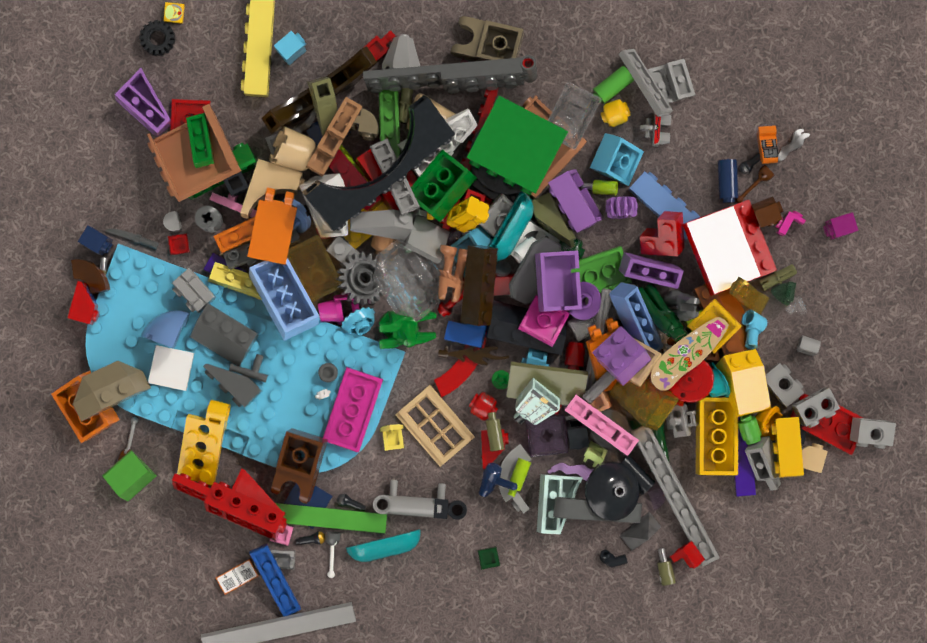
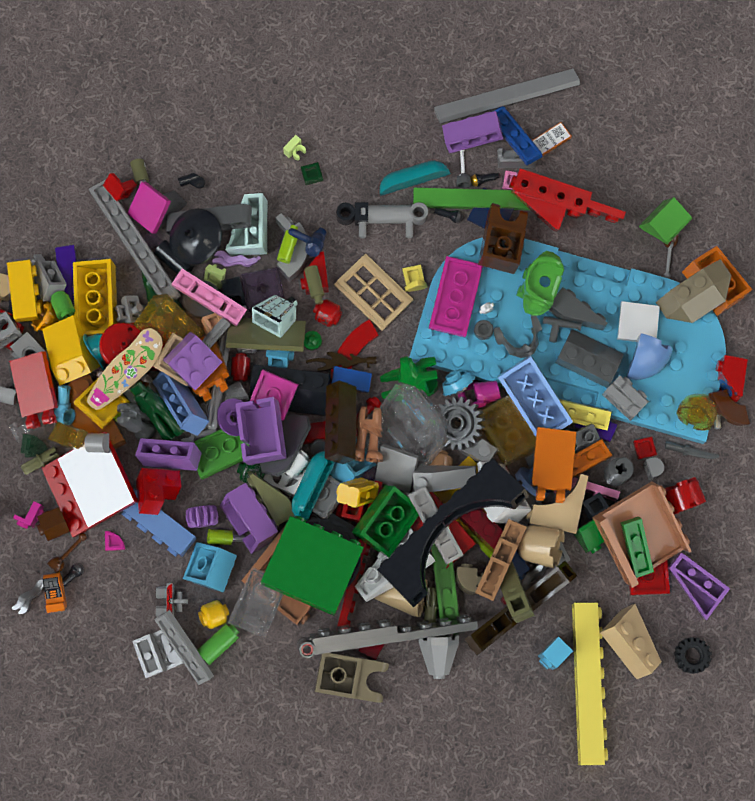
camera: 170 degrees right, 10 degrees down
(96, 241) = (728, 441): dark blue brick -> none
(122, 271) = (698, 411): none -> clear yellow cylinder
(147, 189) = (685, 495): none -> red brick
(174, 13) = (678, 683): tile -> none
(215, 54) = (632, 642): none -> tan wedge
(216, 421) = (588, 273): yellow hinge -> none
(257, 426) = (536, 297): none -> bright green piece
(288, 346) = (525, 350): none -> dark grey helmet
(318, 587) = (472, 132): none -> medium lavender brick
(378, 46) = (464, 664): red plate -> none
(506, 586) = (293, 146): none -> yellowish green tile
(658, 529) = (149, 207): none -> dark pink tile
(709, 192) = (113, 542): none -> dark pink tile
(719, 283) = (97, 443): none -> light grey brick
(728, 180) = (94, 554): dark blue brick -> none
(780, 346) = (34, 389): none -> tile

